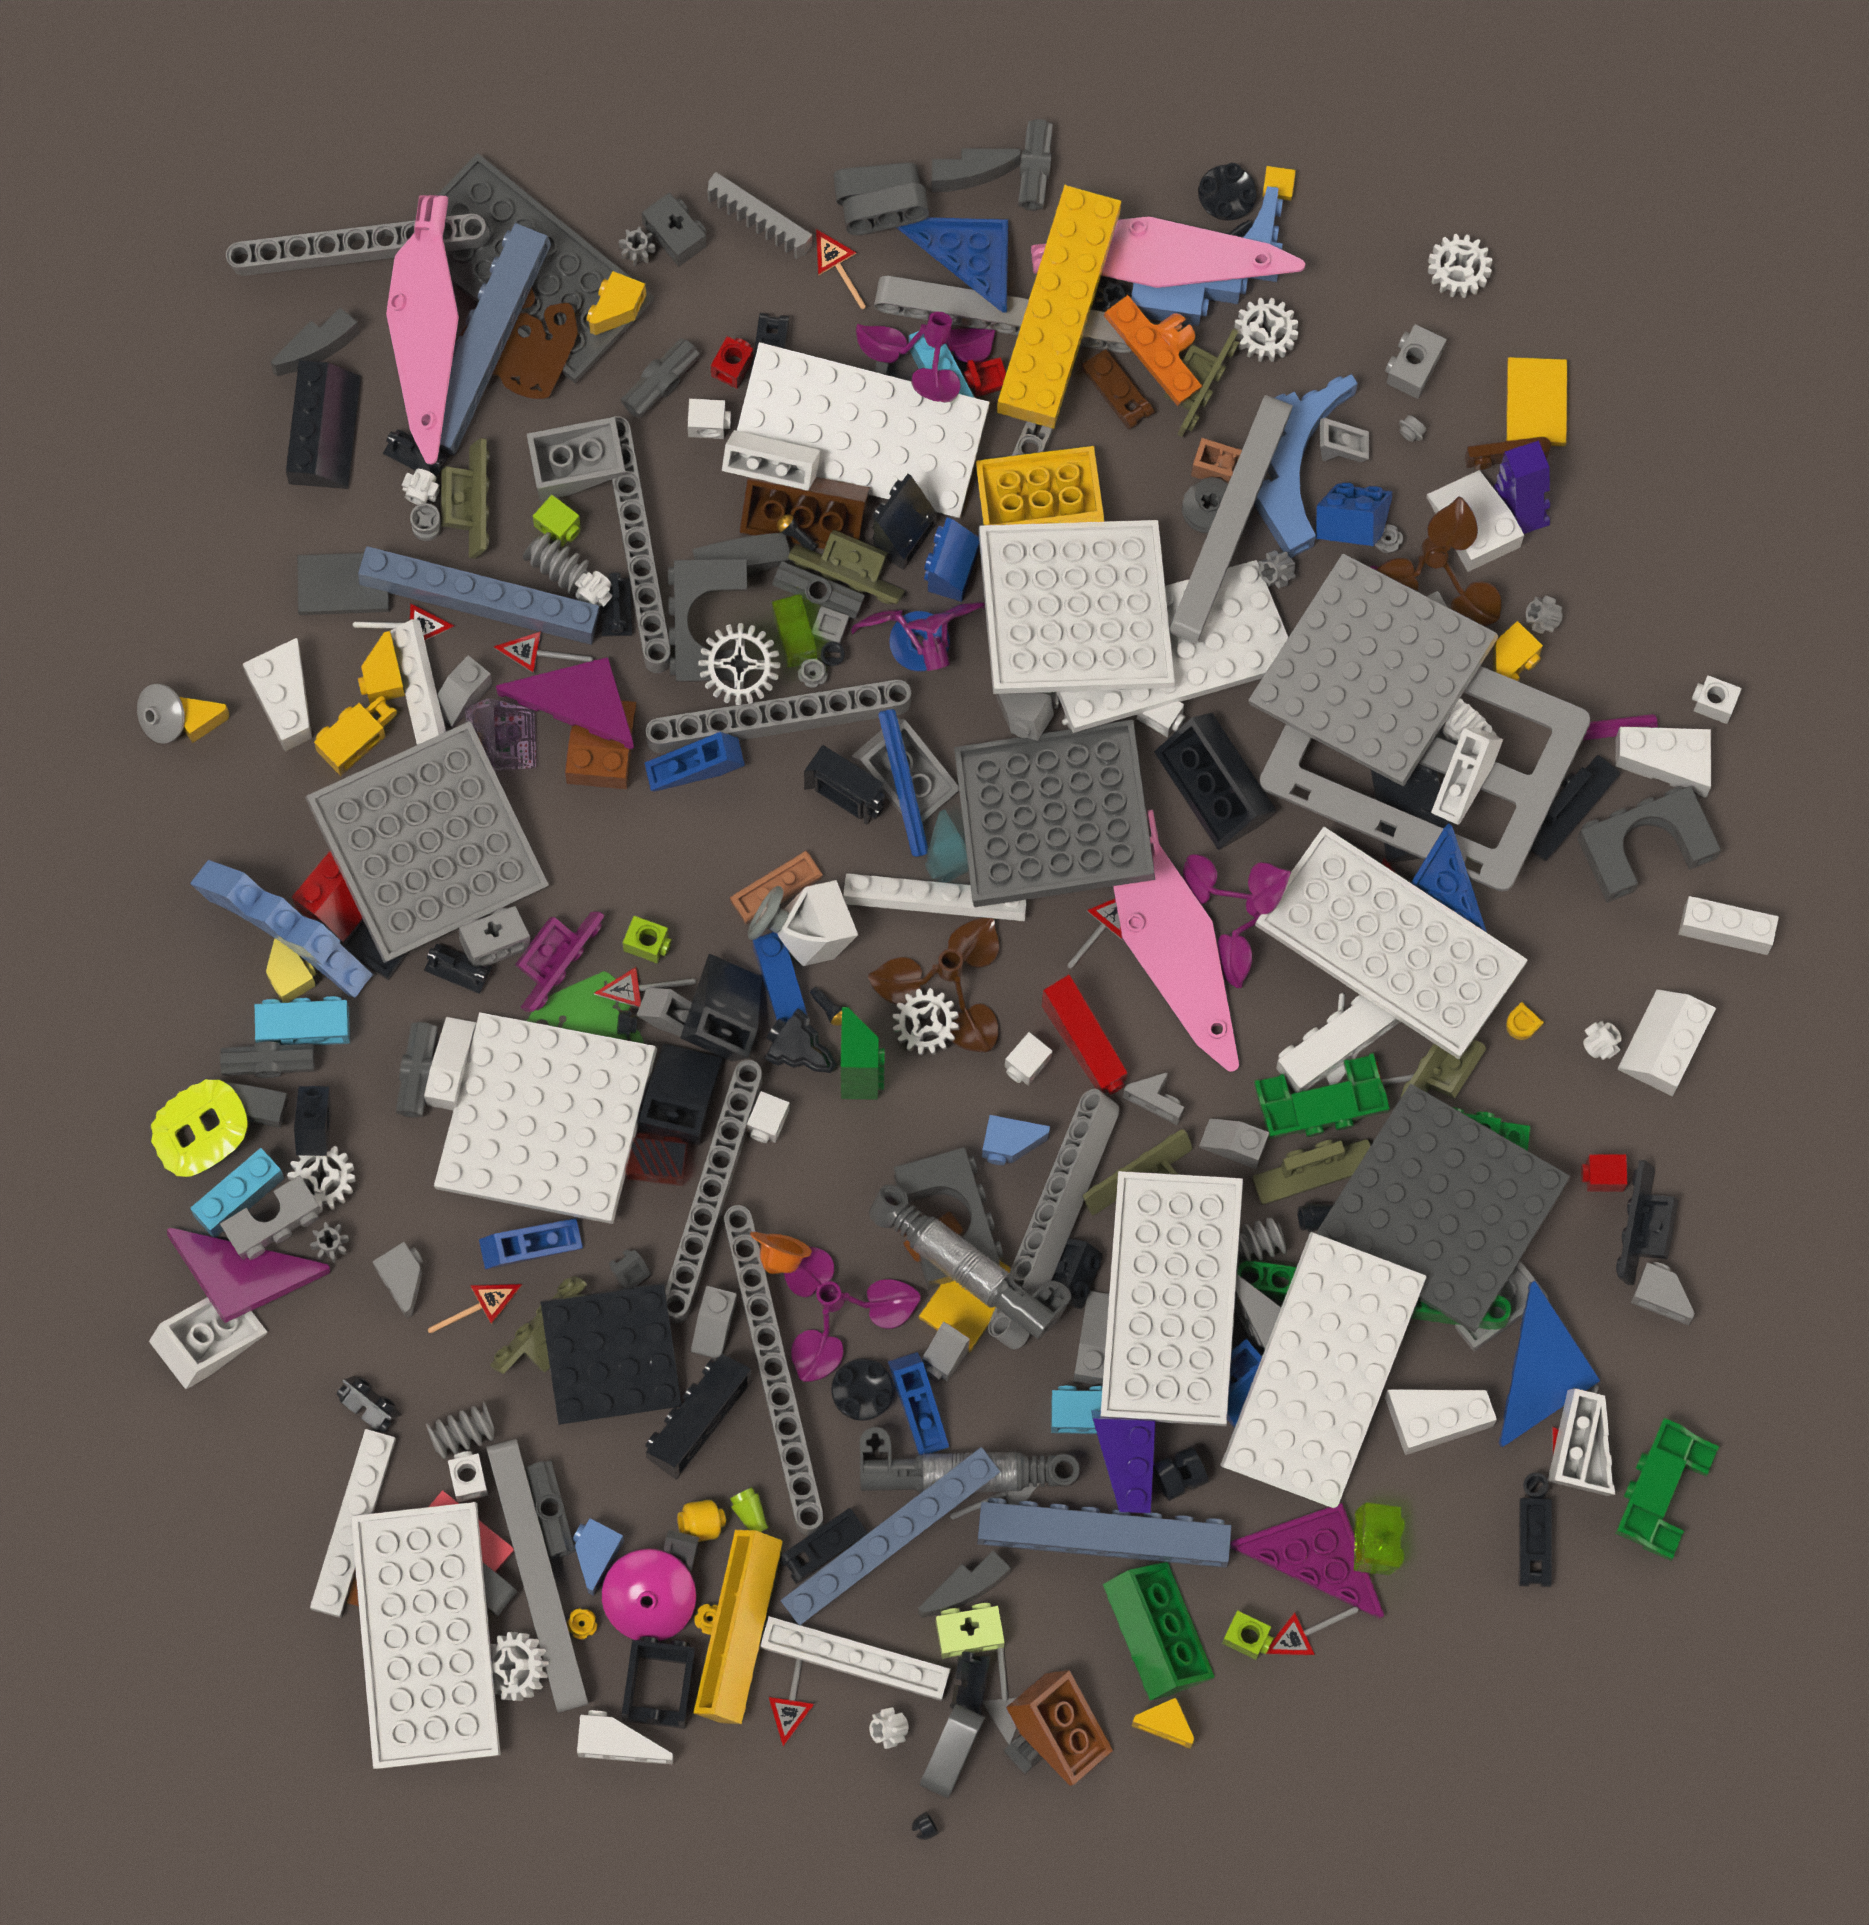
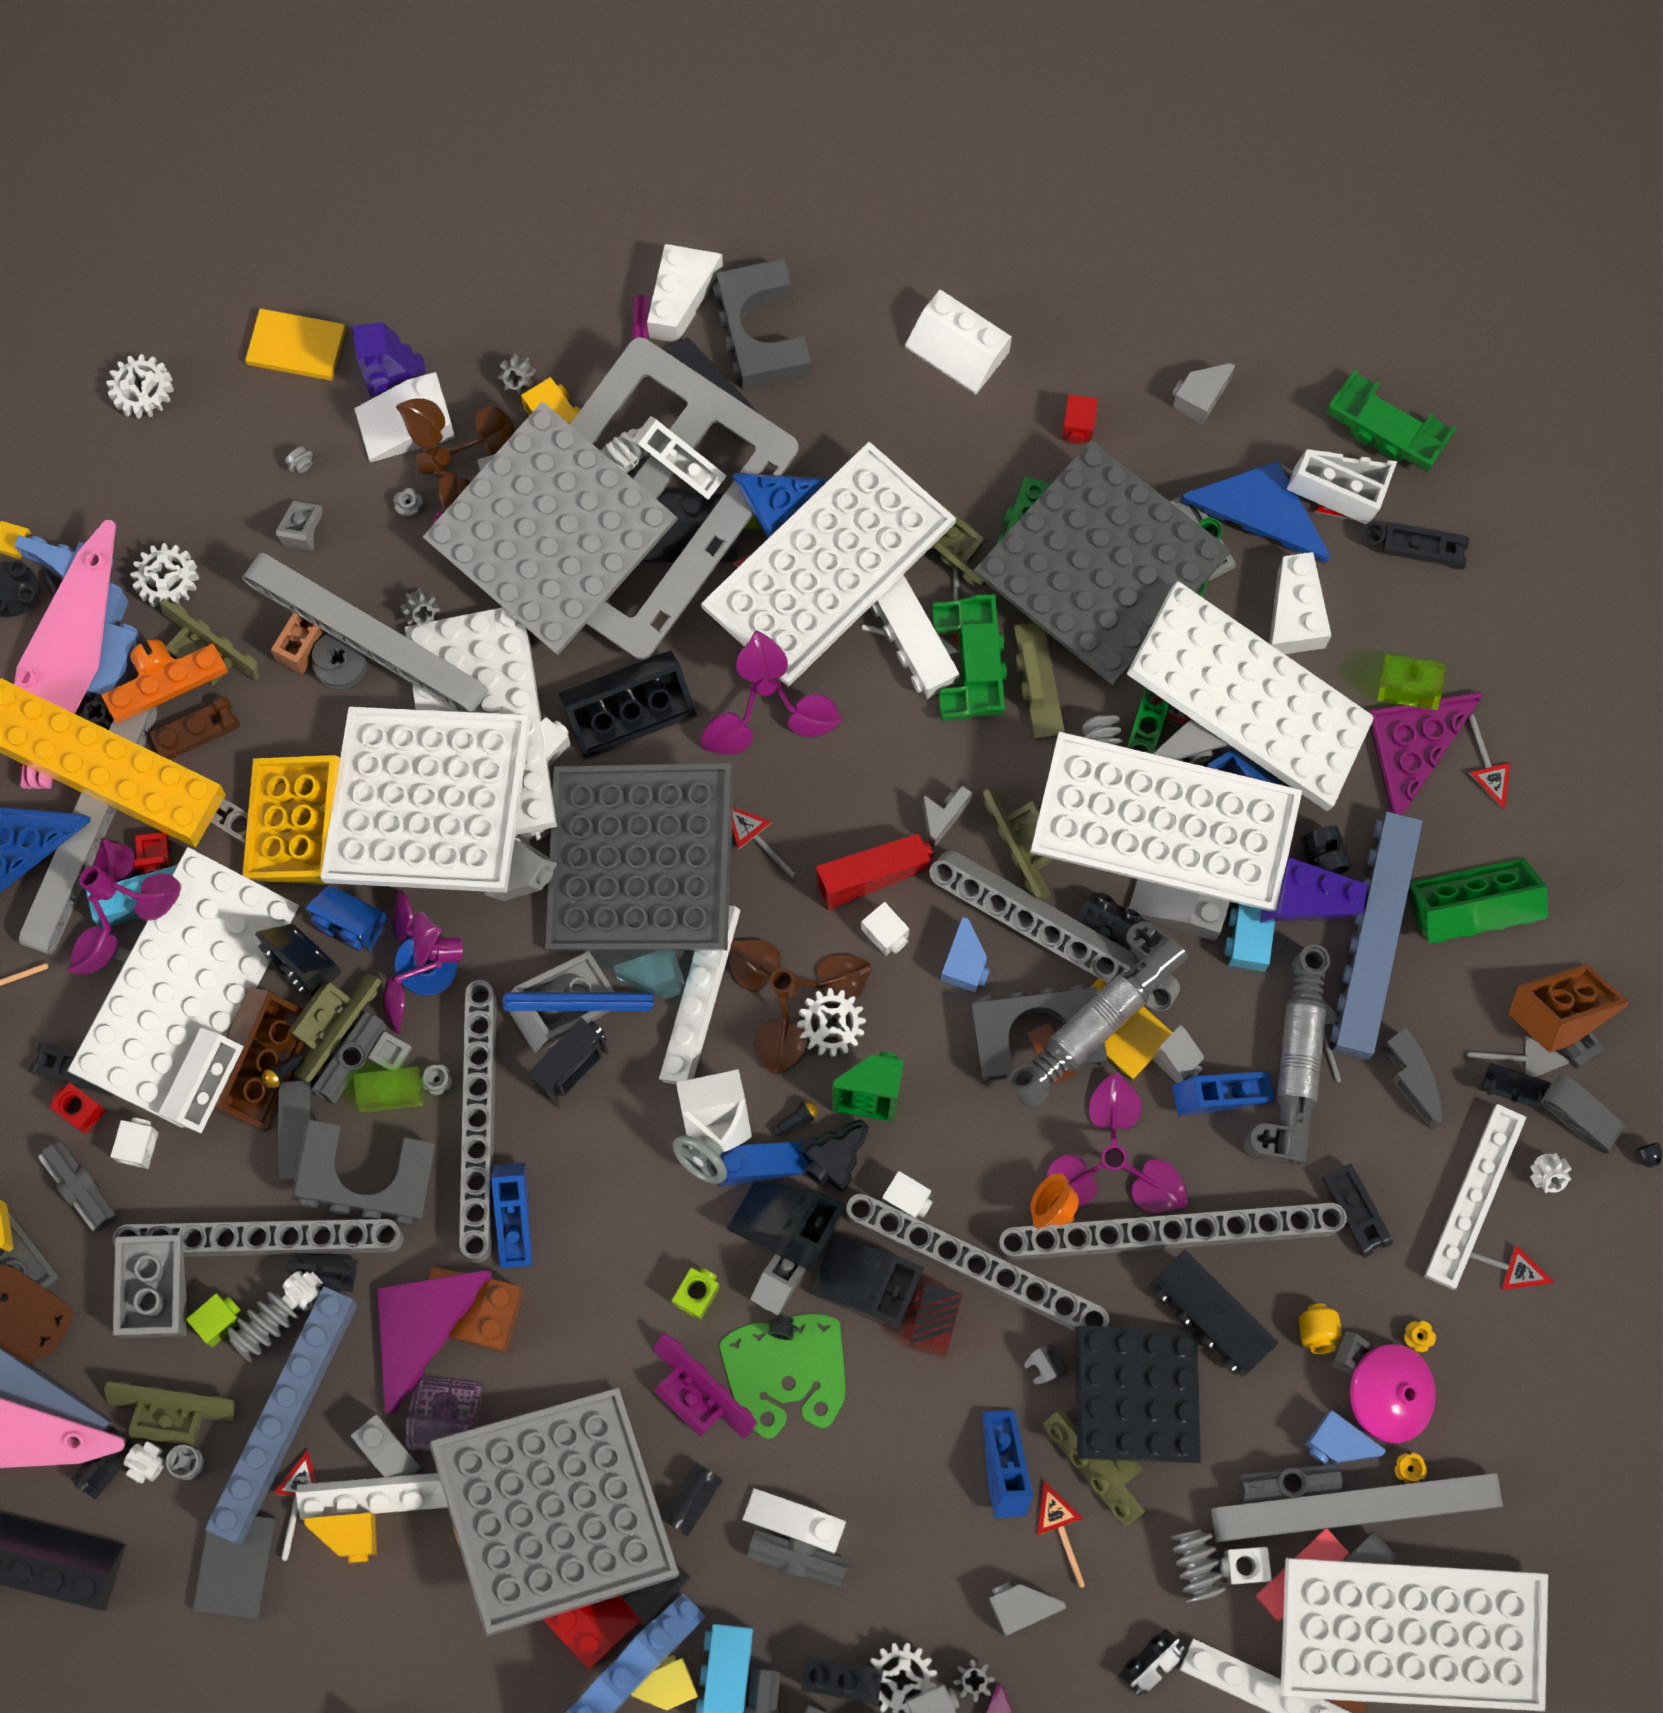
camera: 80 degrees left, 0 degrees up
(281, 692) = (348, 1649): white wedge -> none
(353, 734) = (411, 1576): yellow brick -> none
(508, 940) = (679, 1468): light grey brick -> none
(519, 1651) = (1452, 1542): white gear -> none
(525, 651) = (352, 1376): piece -> none
(545, 1118) = (873, 1428): white plate -> none
(609, 1739) = (1537, 1454): white slope -> none
(626, 988) = (744, 1322): piece -> none
(650, 1649) = (1514, 1405): black window -> none
(713, 1322) = (1114, 1284): light grey slope -> none
(738, 1627) = (1436, 1307): yellow brick -> none
(740, 638) = (407, 1144): white gear -> none
(749, 1510) = (1313, 1278): lime cone -> none
(791, 876) = (659, 1153): nougat tile -> none
(833, 647) = (427, 1057): black hinge -> none
(862, 1389) = (1201, 1146): black dish -> none
(890, 1536) = (1365, 1138): sand blue brick -> none
(985, 1638) = (1467, 1063): yellowish green brick -> none
(1166, 1722) = (1567, 906): yellow slope -> none
(1178, 952) = (800, 767): bright pink wing -> none
(1235, 1141) = (999, 746): light grey slope -> none
(1238, 1625) = (1481, 826): lime brick -> none
(1280, 499) = (363, 588): medium blue arch -> none
(1312, 1215) = (1084, 684): black cone -> none
(1353, 514) = (379, 525): blue slope -> none
(1413, 377) = (220, 430): light grey brick -> none
(1486, 455) = (344, 375): reddish brown plate -> none
(1522, 1022) = (918, 467): yellow tile -> none
(1602, 1040) = (950, 398): white gear -> none
(1648, 1224) = (1136, 389): black bracket -> none
(1718, 711) = (631, 228): white brick -> none
(1728, 925) = (856, 269): white brick -> none

